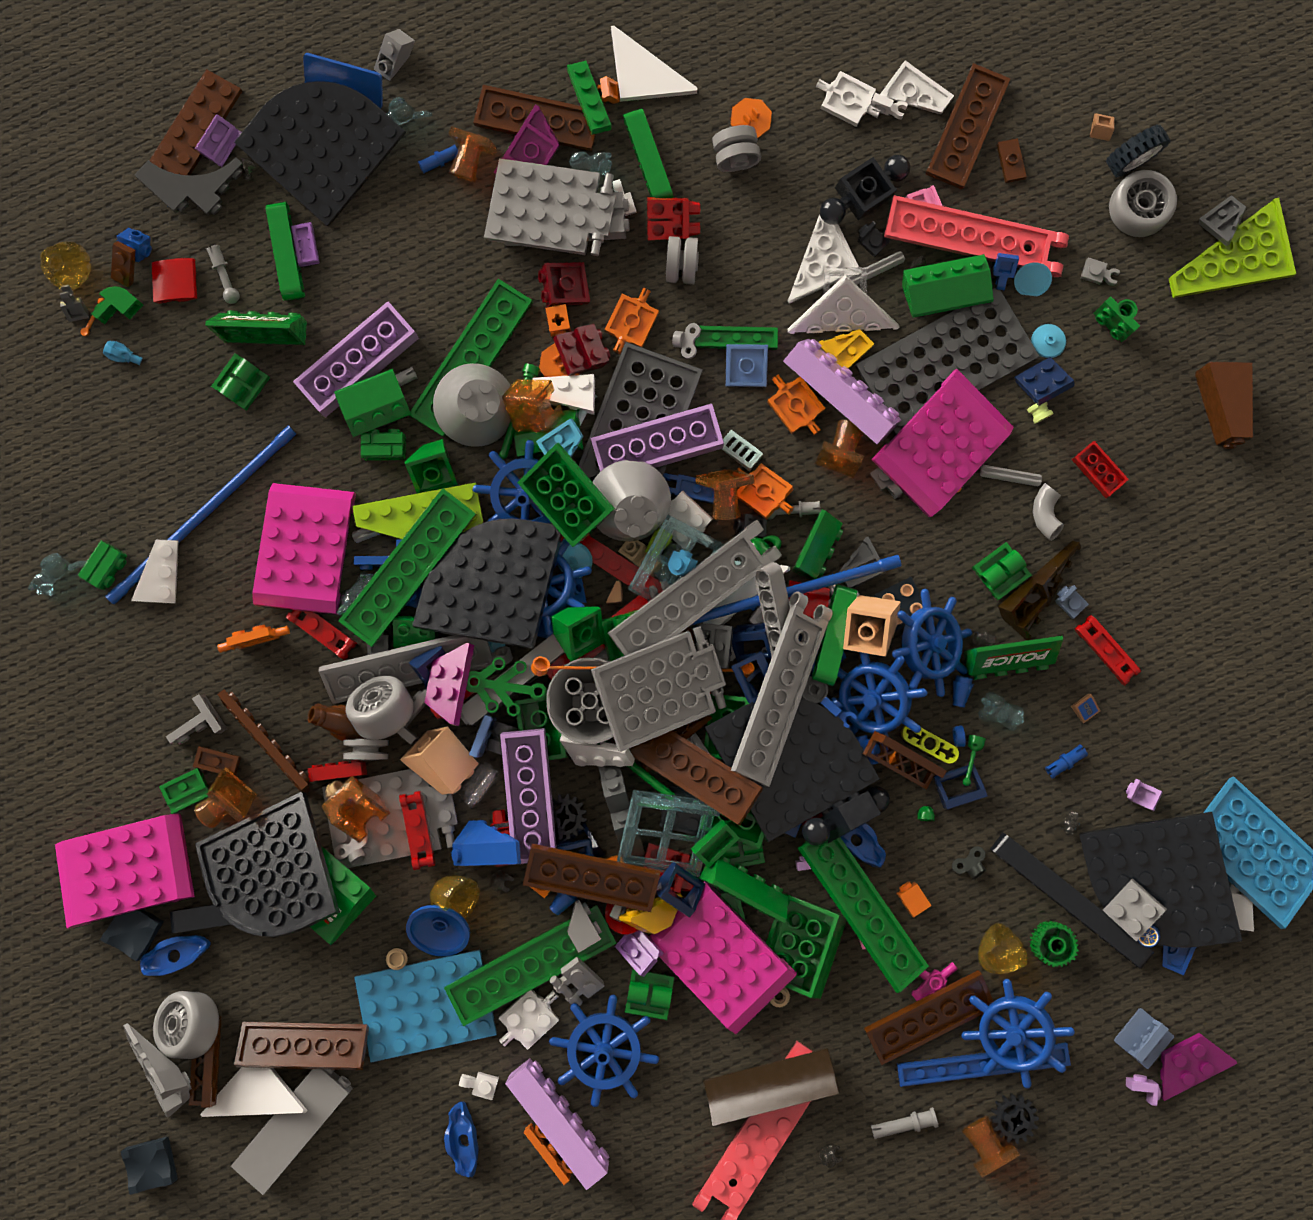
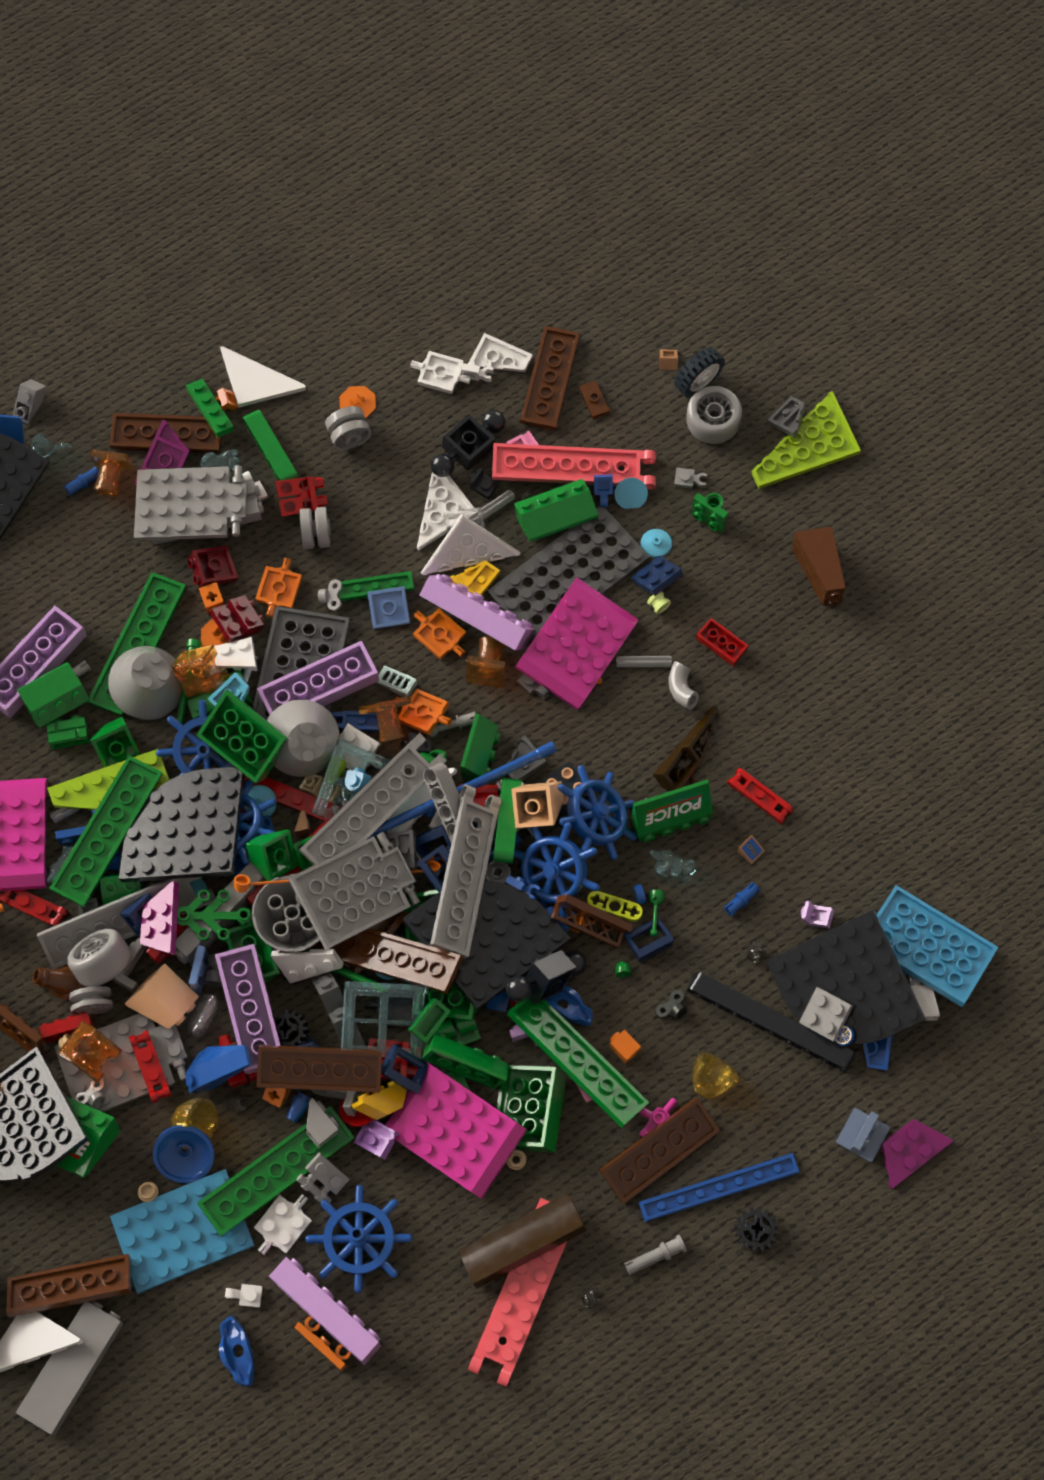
camera: 15 degrees left, 15 degrees down
(650, 994) = (393, 1179): green plate -> none
(961, 690) = (634, 853): blue cone -> none
(988, 1147) = (736, 1258): clear orange plant -> none
(1002, 570) = (651, 743): green plate -> none
(1017, 1033) = (740, 1143): blue piece -> none
(1043, 938) = (771, 1057): green brick -> none
(1071, 601) = (718, 759): sand blue bracket -> none
(1142, 1084) = (869, 1175): lavender bracket -> none

